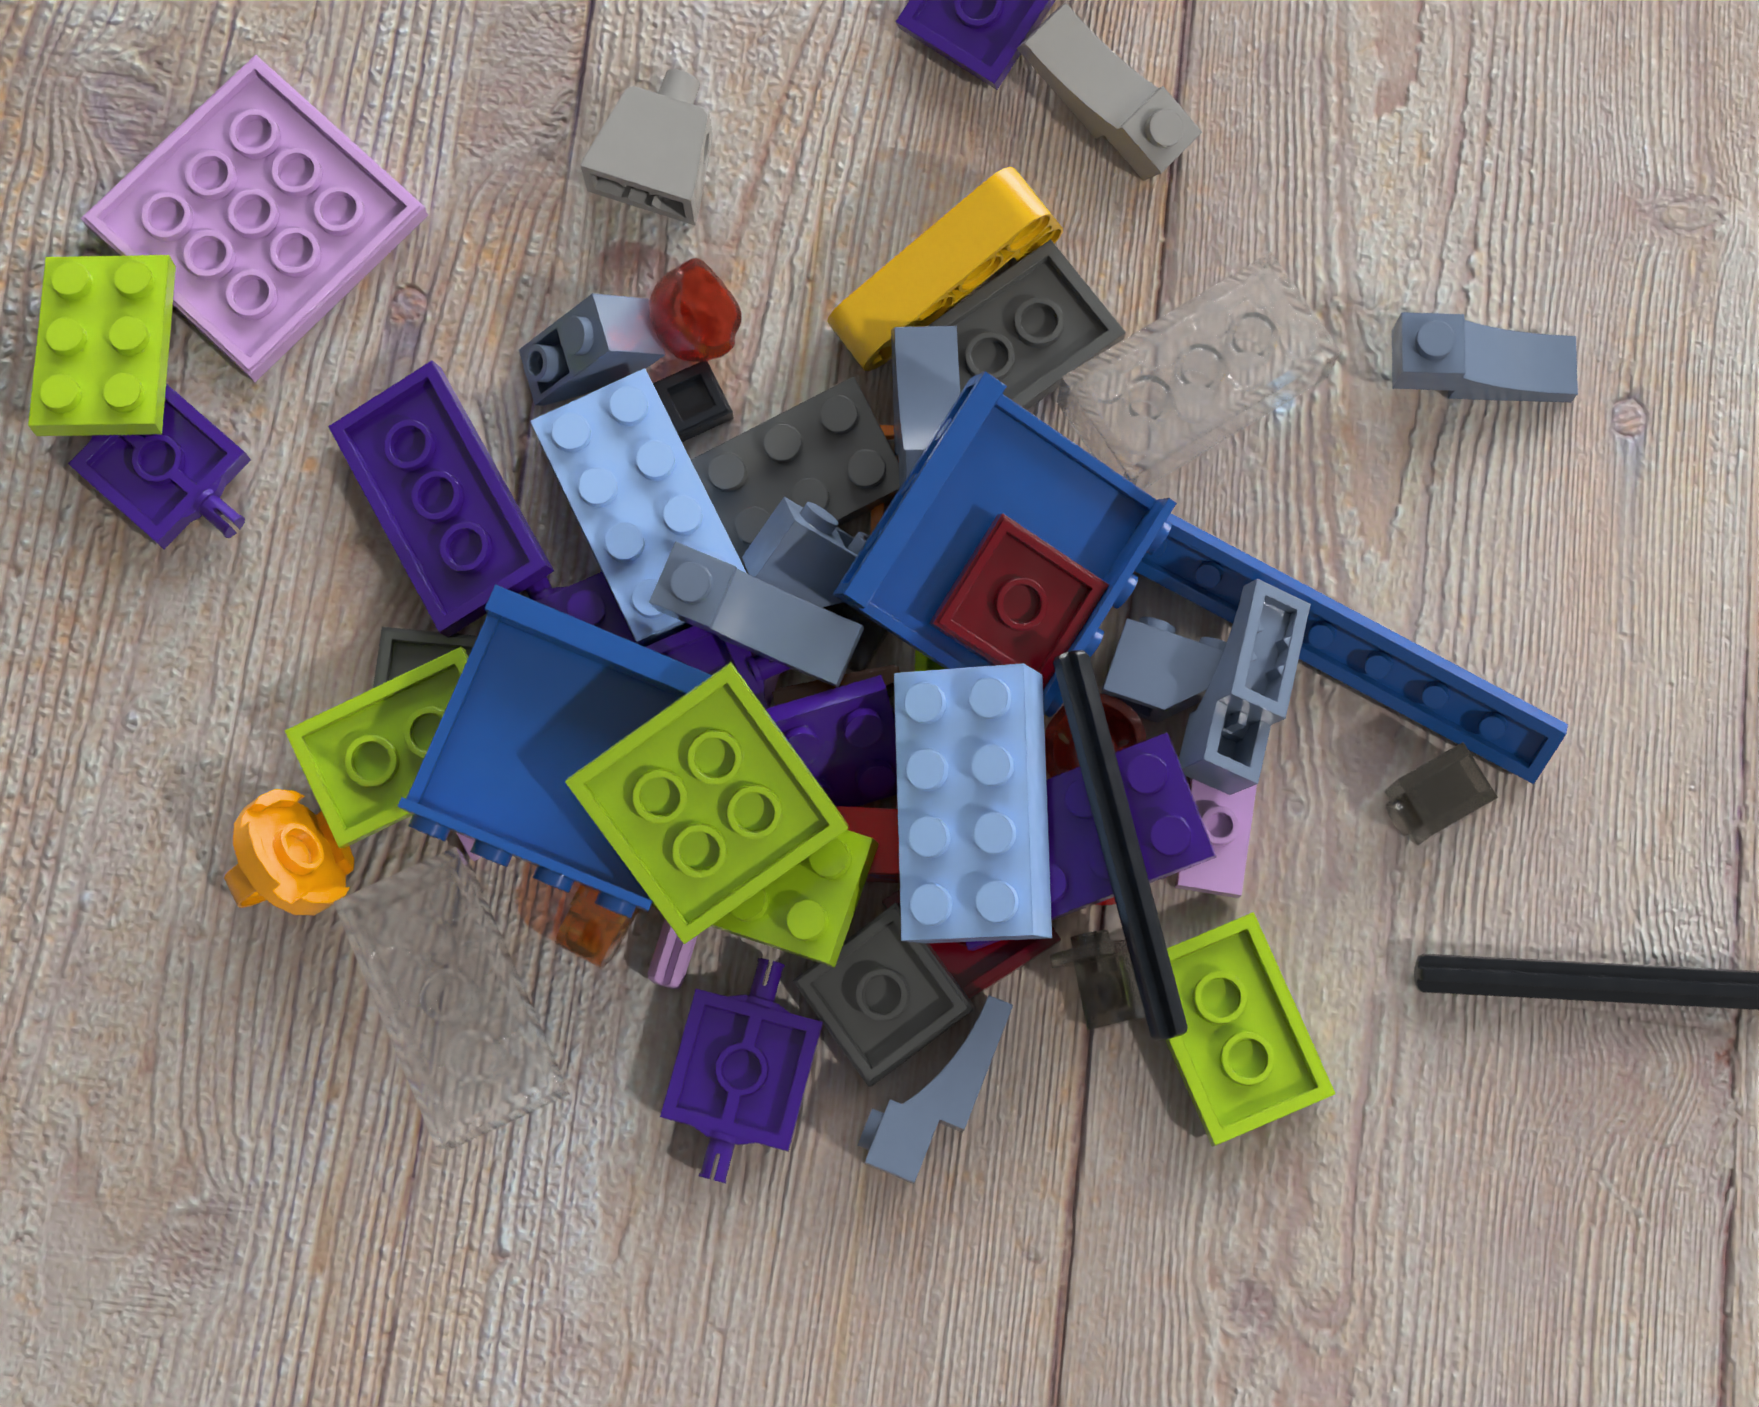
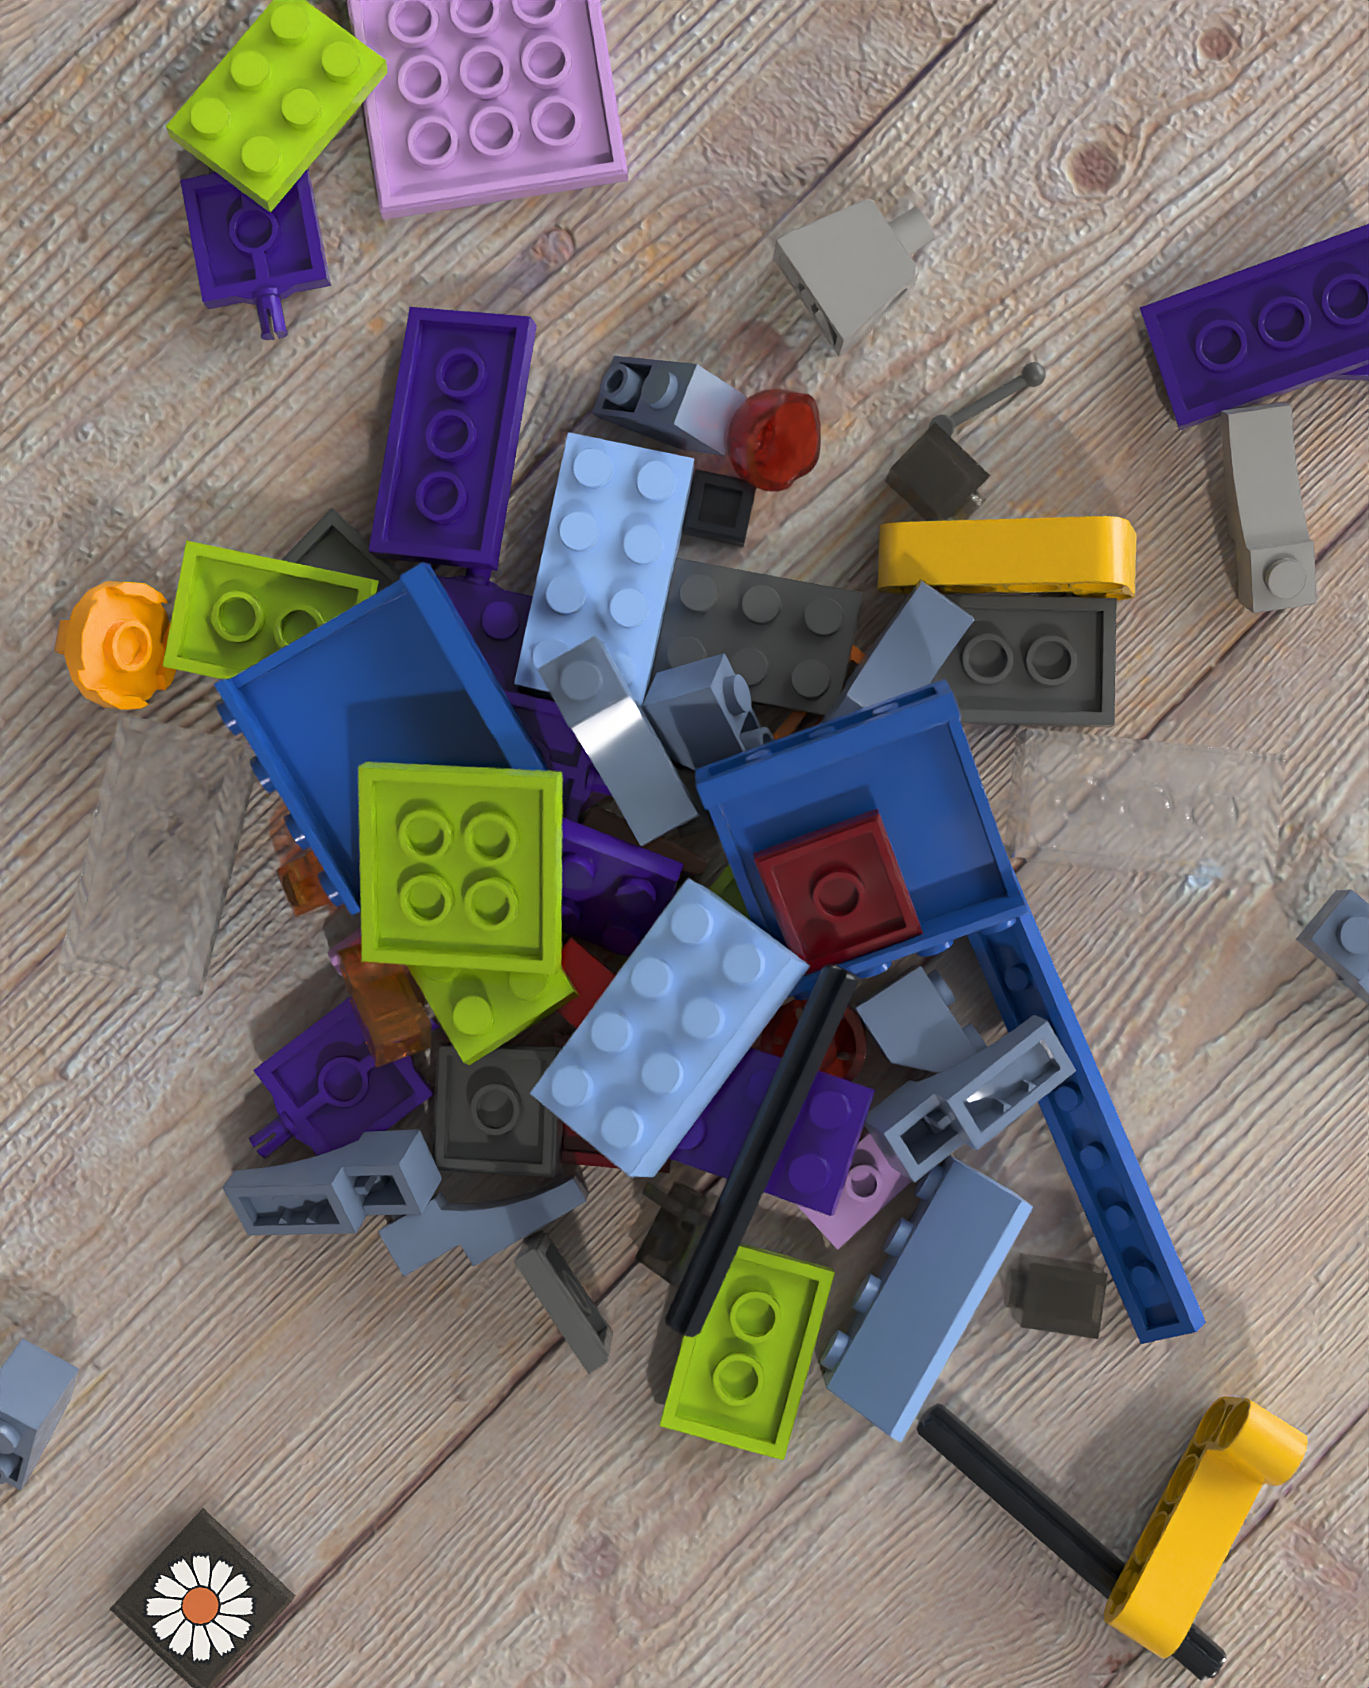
camera: 40 degrees right, 10 degrees up
(727, 973) = (384, 1007): none -> clear orange leg
(802, 1157) = (338, 1188): none -> sand blue slope
(816, 216) = (1032, 375): none -> dark grey hinge
(843, 251) = (939, 478): none -> clear smoke brick
(1061, 1096) = (565, 1300): none -> dark grey tile
(1335, 869) = (923, 1294): none -> light blue slope
(1689, 875) = (1198, 1520): none -> yellow beam

